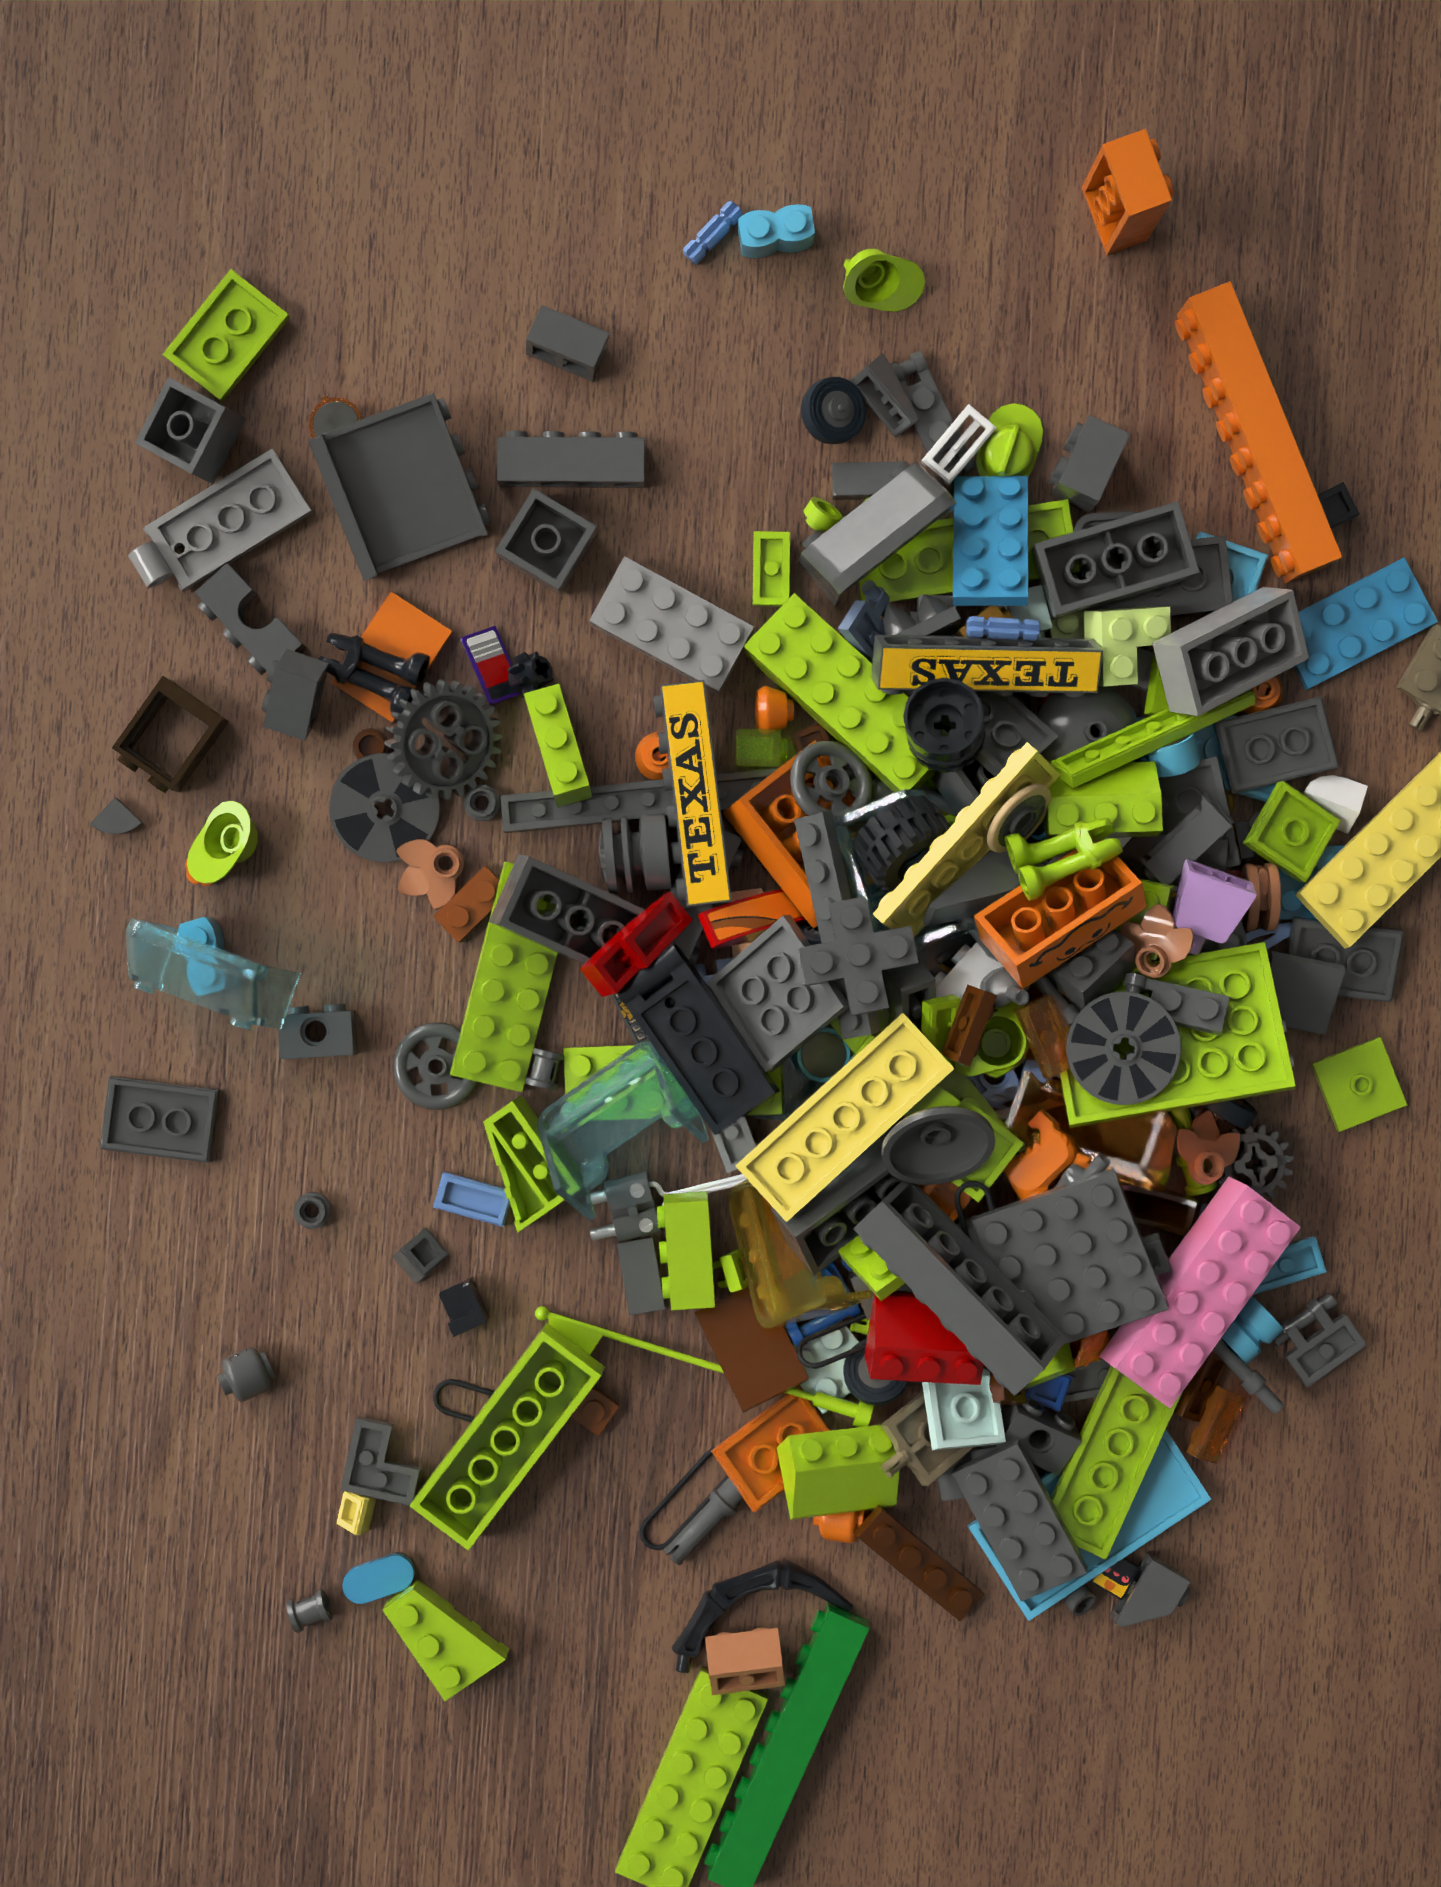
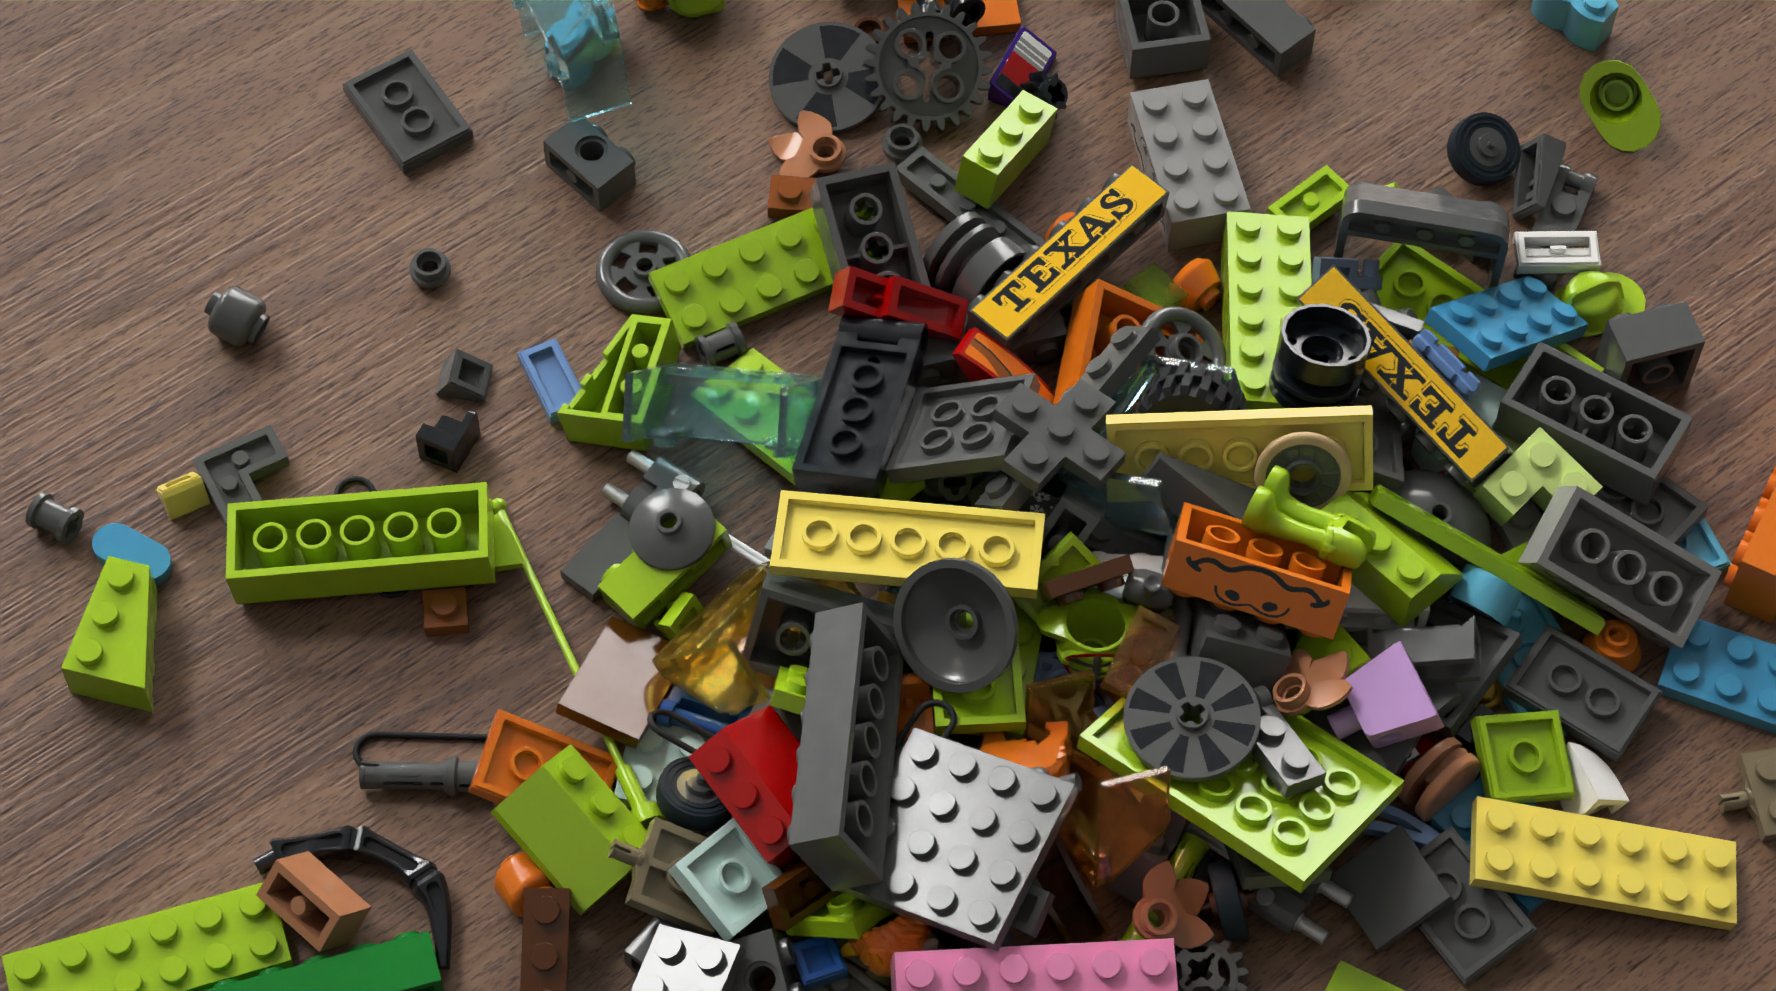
camera: 50 degrees right, 30 degrees down
(674, 1217) = (675, 546): none -> dark grey dish

